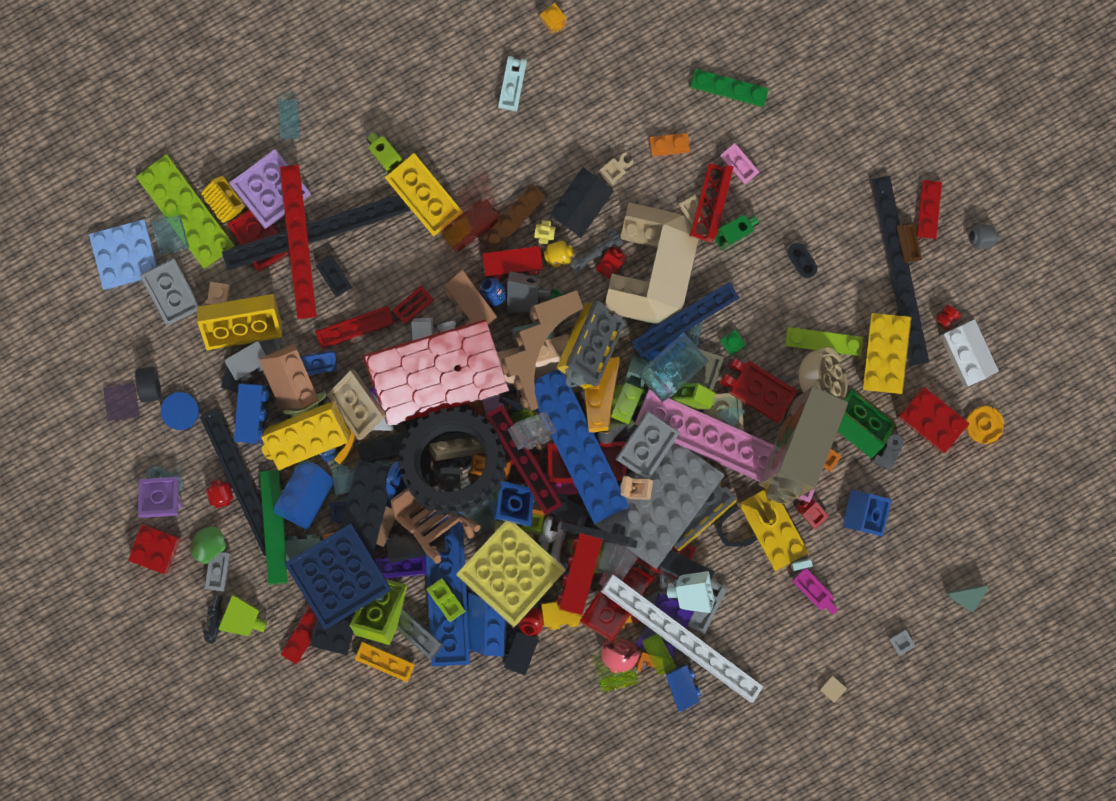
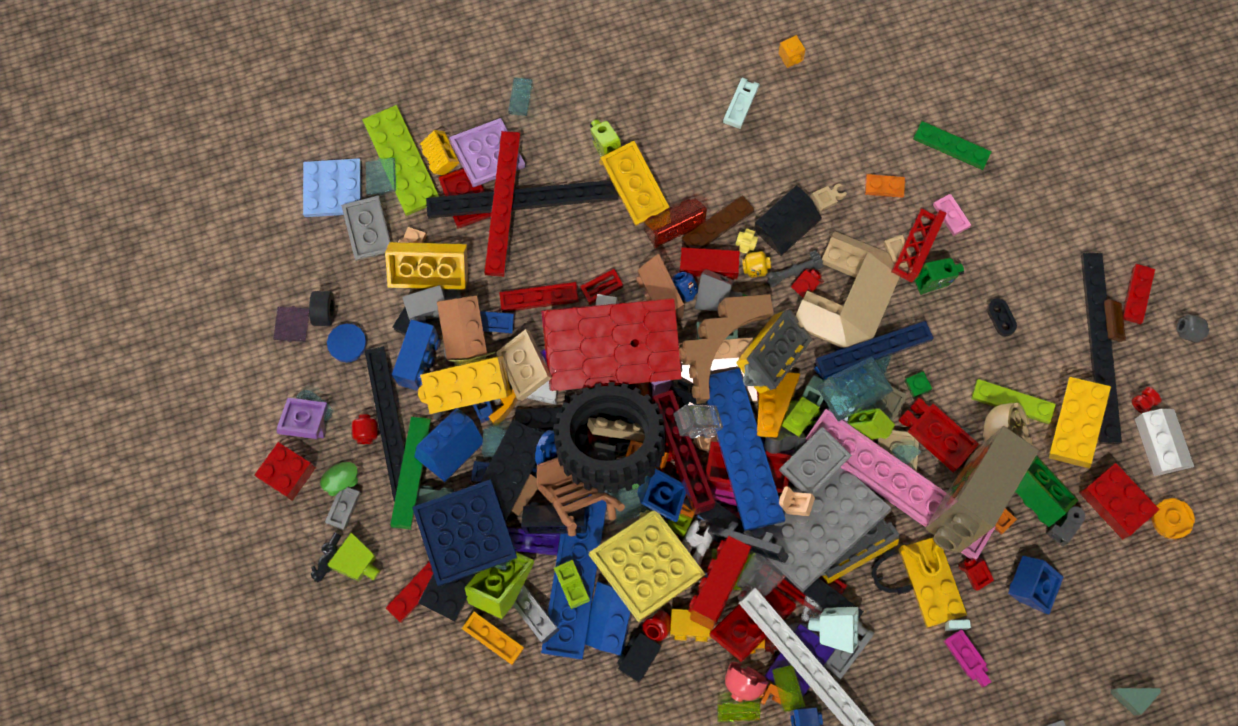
camera: 15 degrees right, 15 degrees down
(334, 276) = (529, 244): black plate -> none

